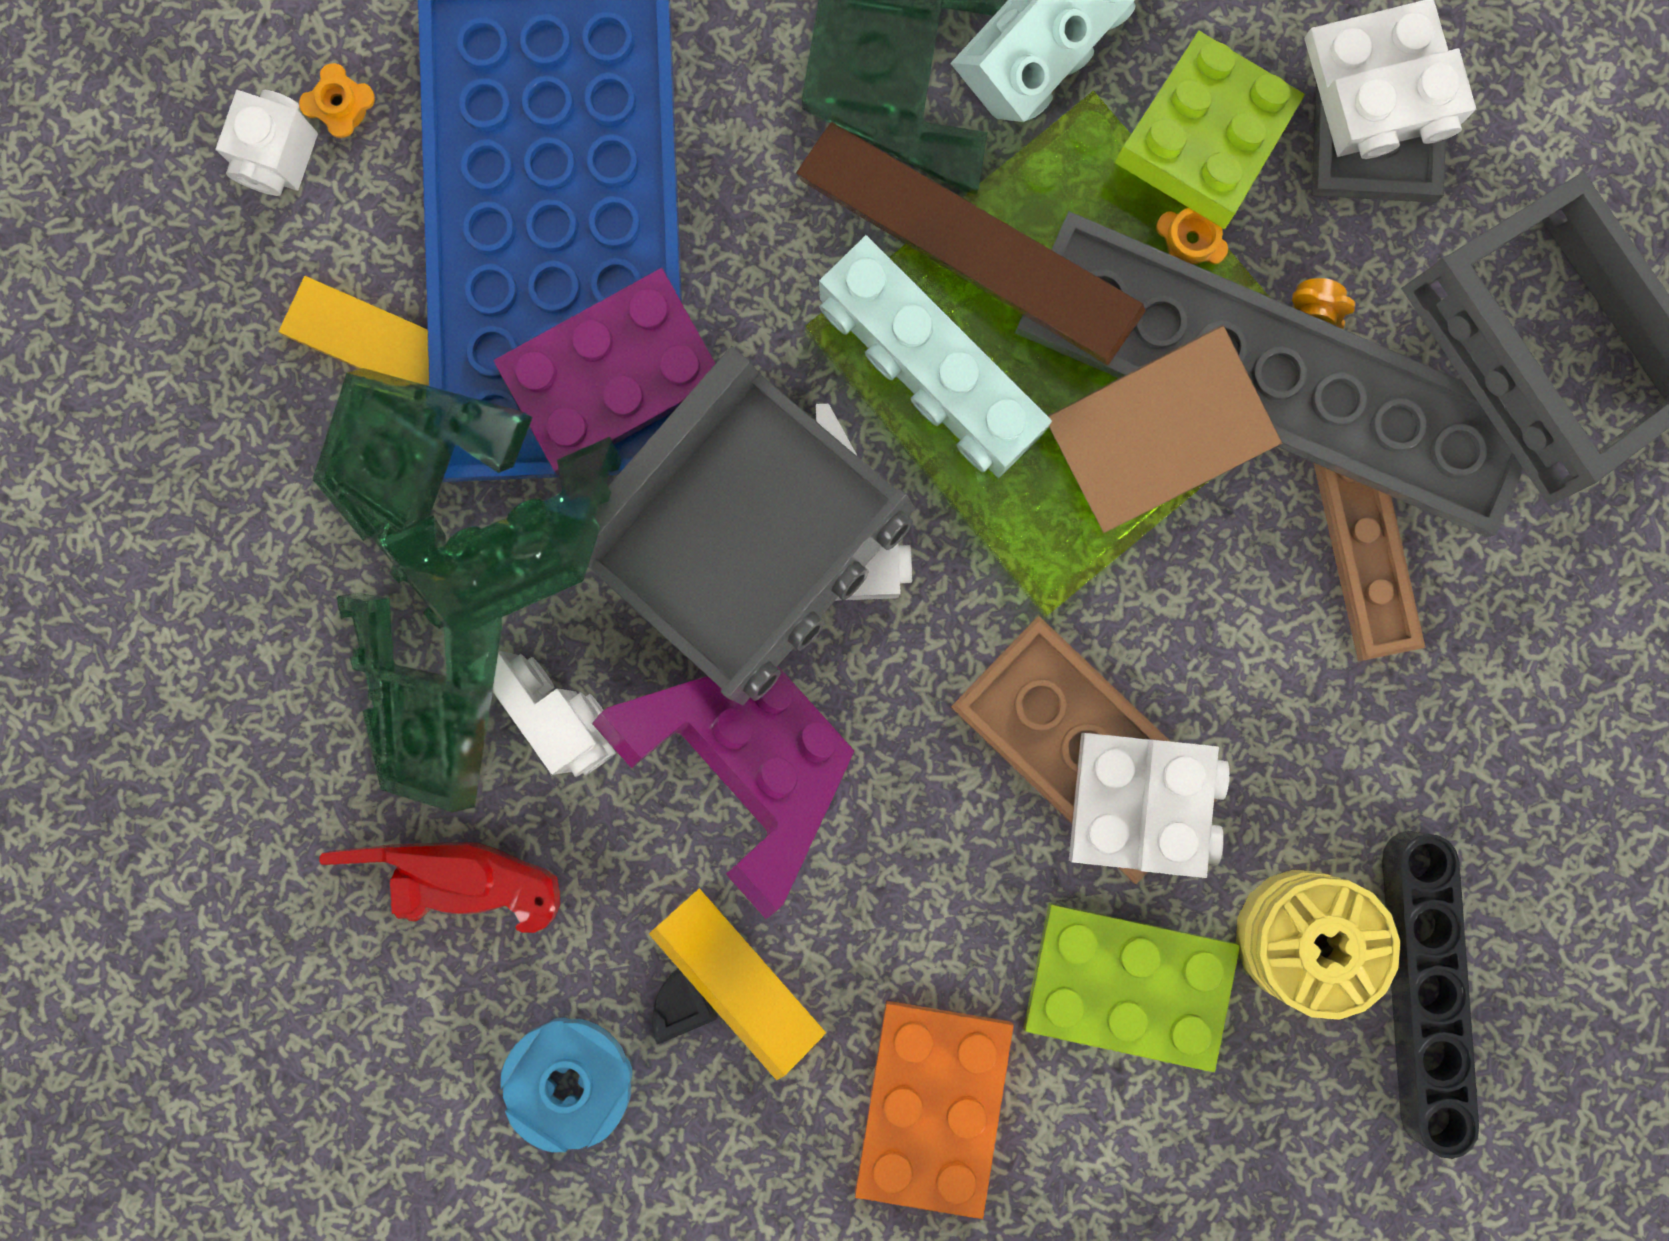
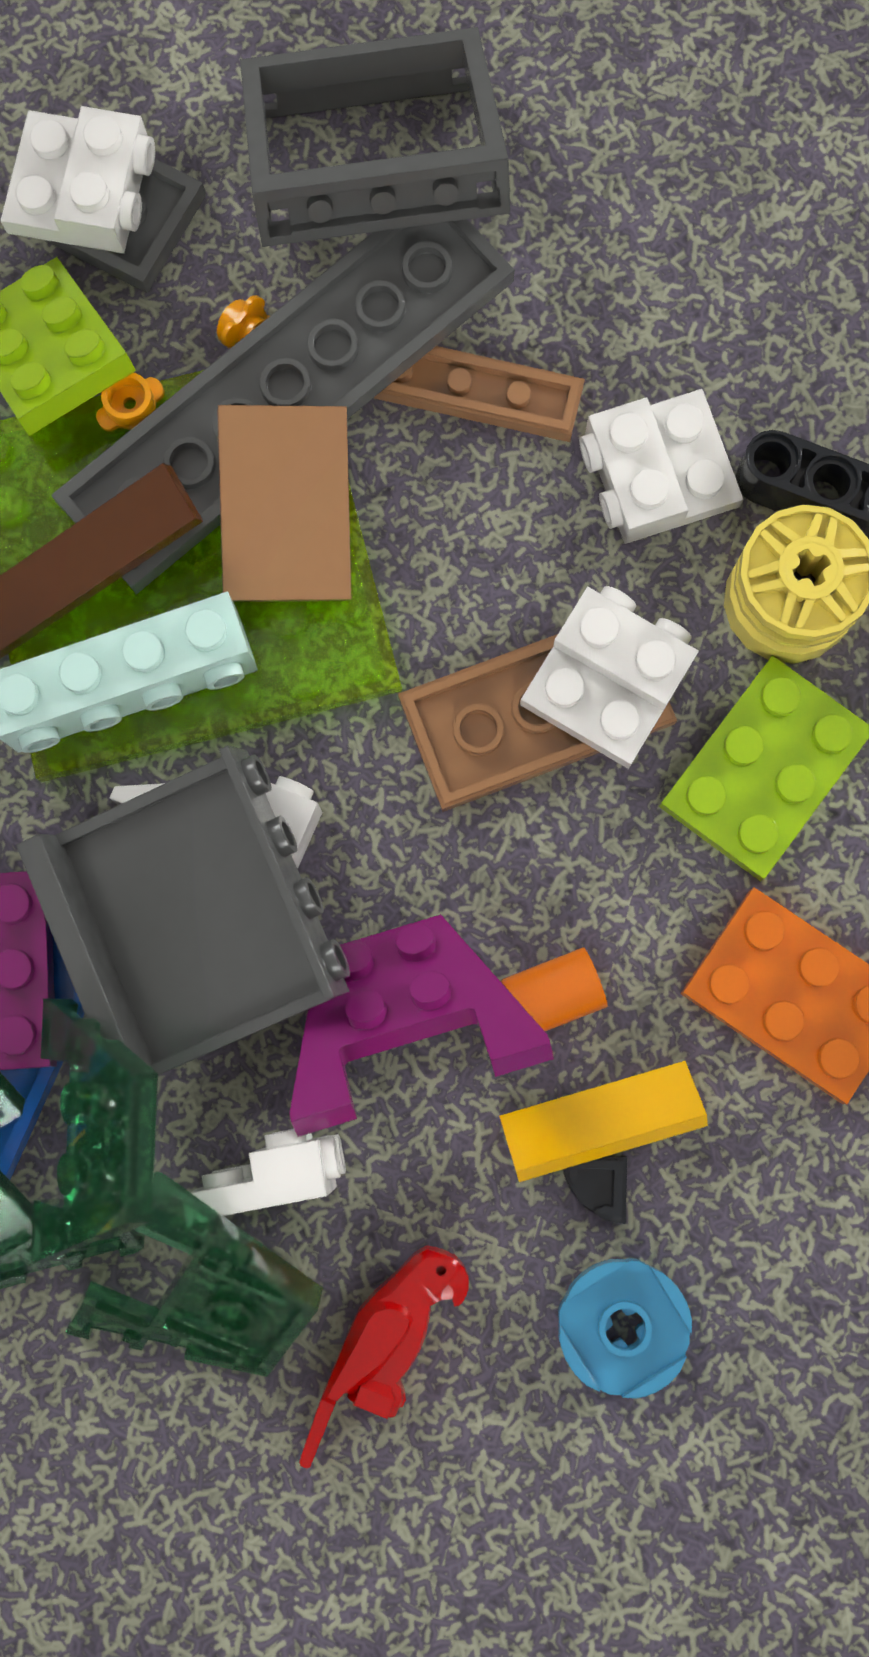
camera: 60 degrees left, 5 degrees down
(834, 889) = (559, 989): none -> orange piece
(1375, 757) = (659, 465): none -> white plate

